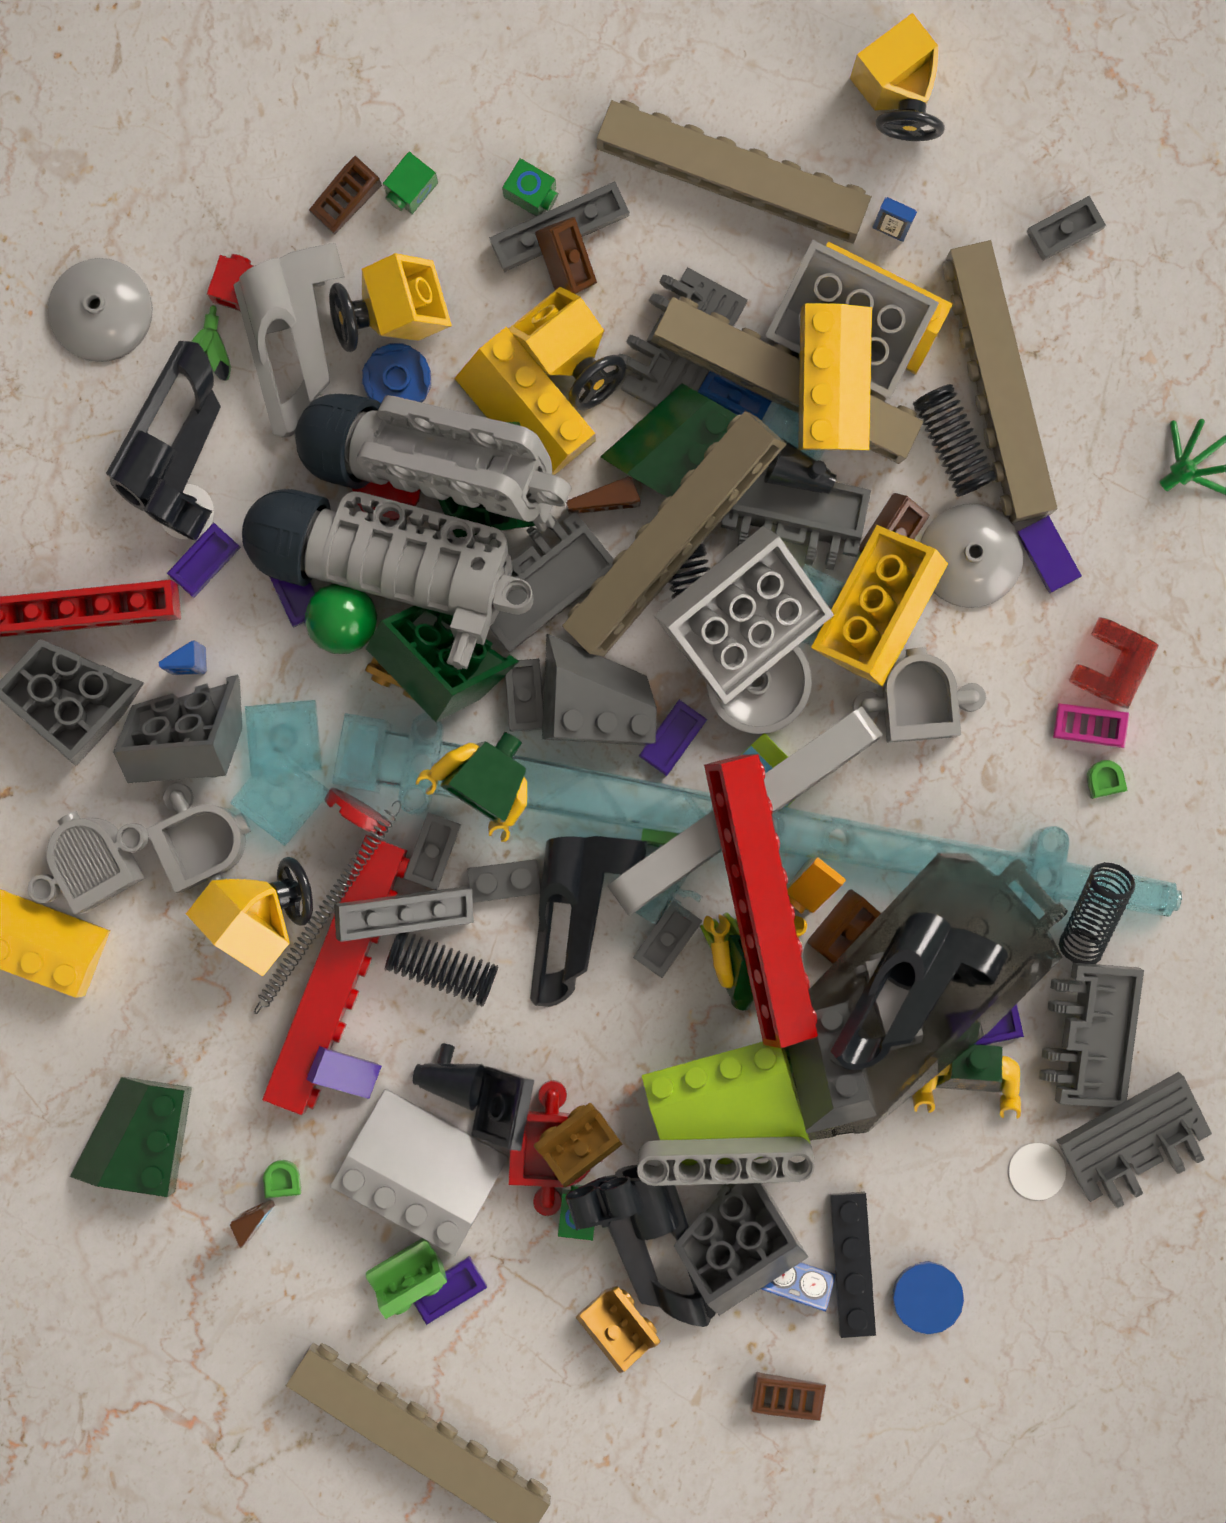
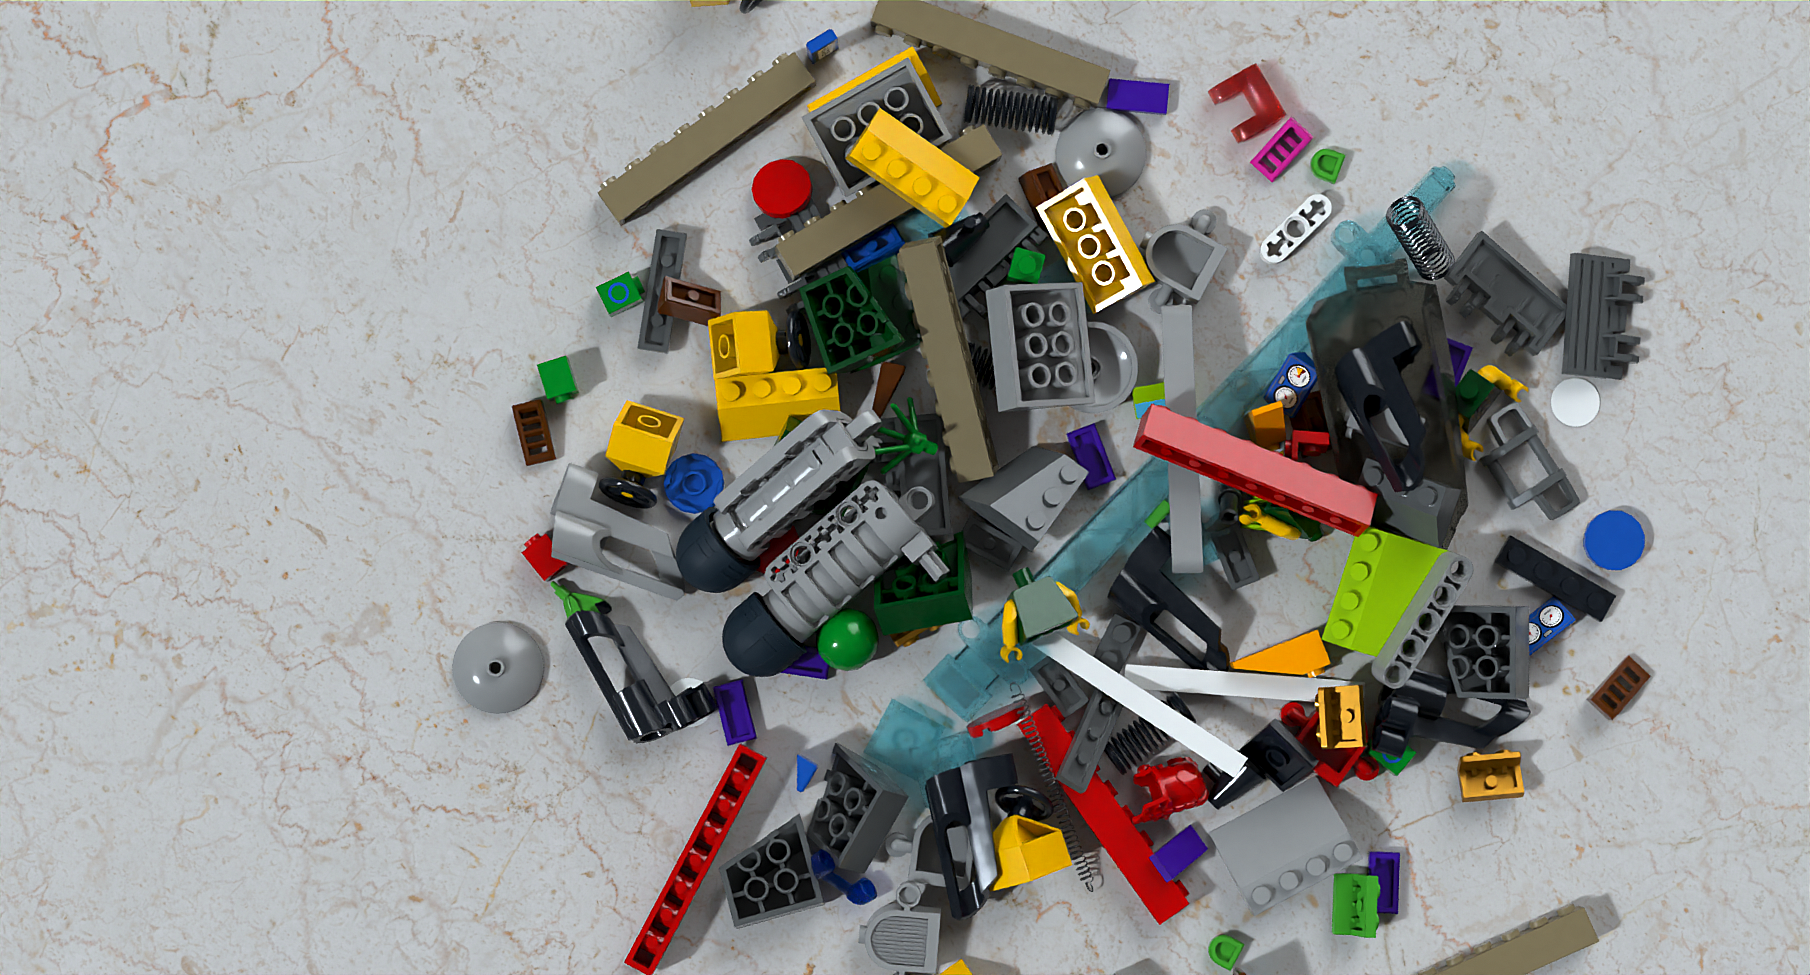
camera: 55 degrees left, 0 degrees up
(106, 790) = (858, 893): none -> clear blue bar
(253, 826) = (961, 799): none -> black panel
(404, 1025) = (1171, 788): none -> red helmet
(464, 942) = (1141, 703): none -> white sticker
(543, 1015) = (1230, 683): none -> white sticker
(572, 554) = (912, 441): none -> green plant
(608, 1059) = (1294, 656): none -> light orange slope
(643, 413) = (848, 322): none -> dark green wedge
(716, 898) = (1229, 501): none -> dark grey pin
(733, 274) = (782, 188): none -> red tile
(812, 550) = (1025, 266): none -> green brick
(824, 937) = (1307, 442): none -> red bracket
(871, 883) = (1292, 383): none -> slope
(954, 1196) = (1535, 492): none -> dark grey bar
(1046, 805) = (1317, 219): none -> white beam

